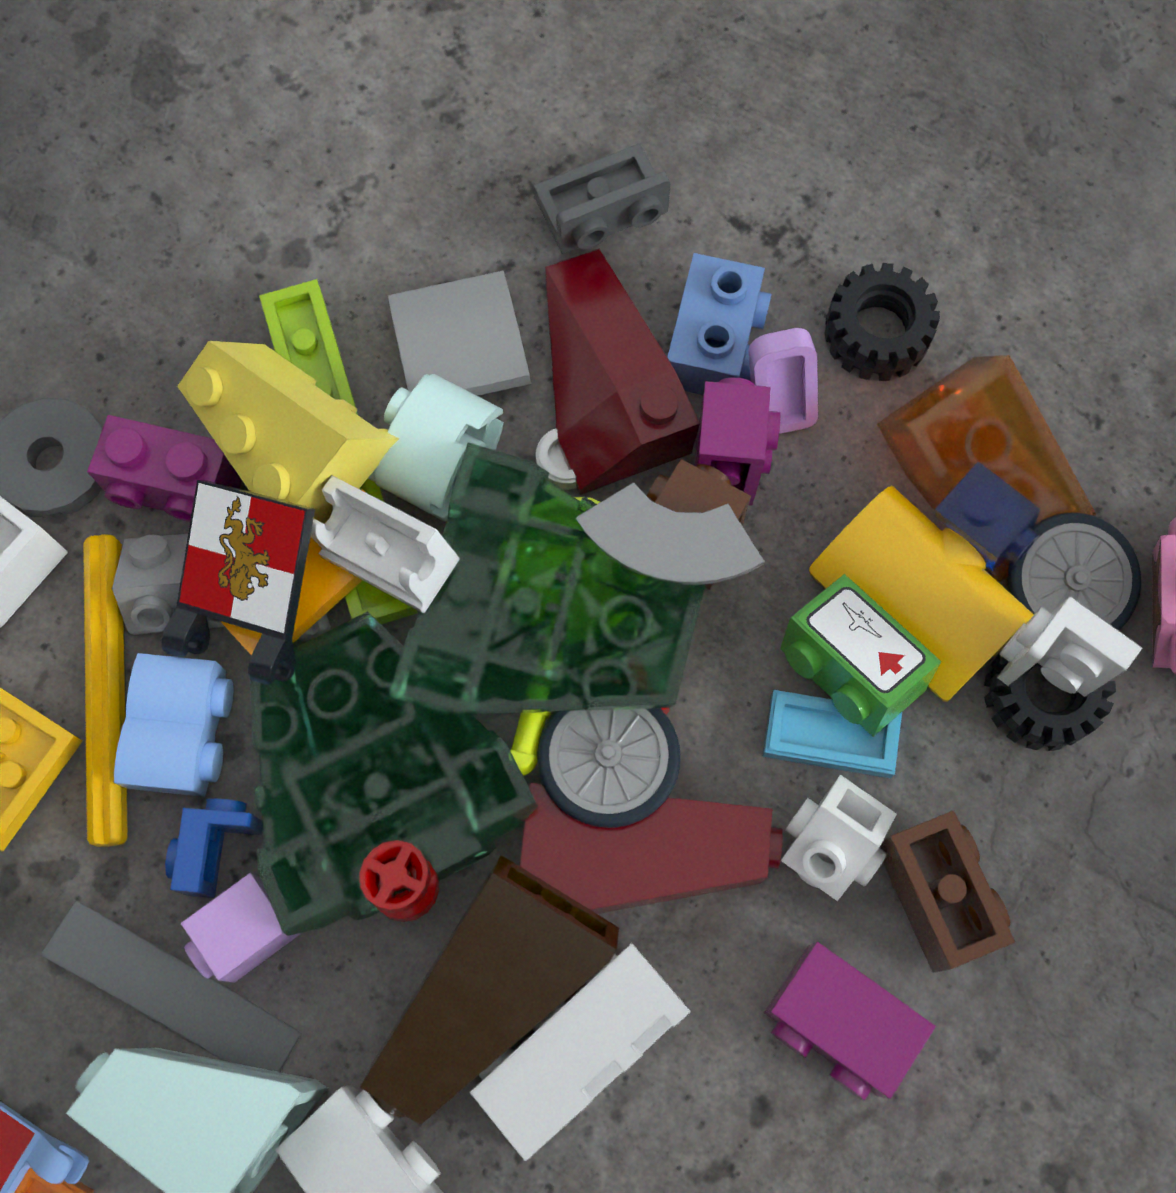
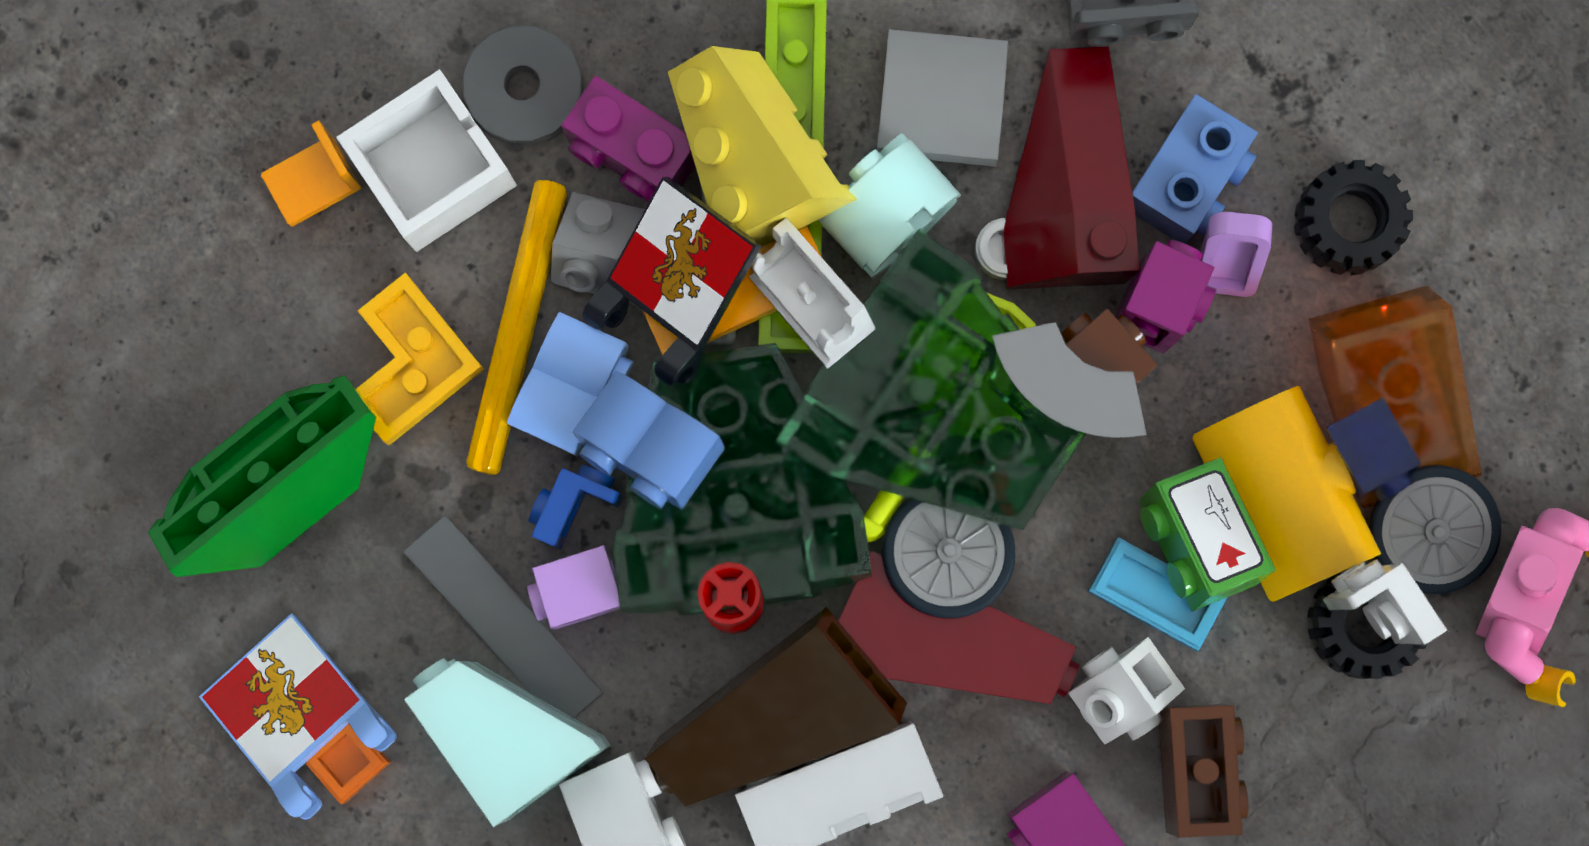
camera: 20 degrees right, 10 degrees up
(261, 747) = (648, 441): none -> medium blue brick

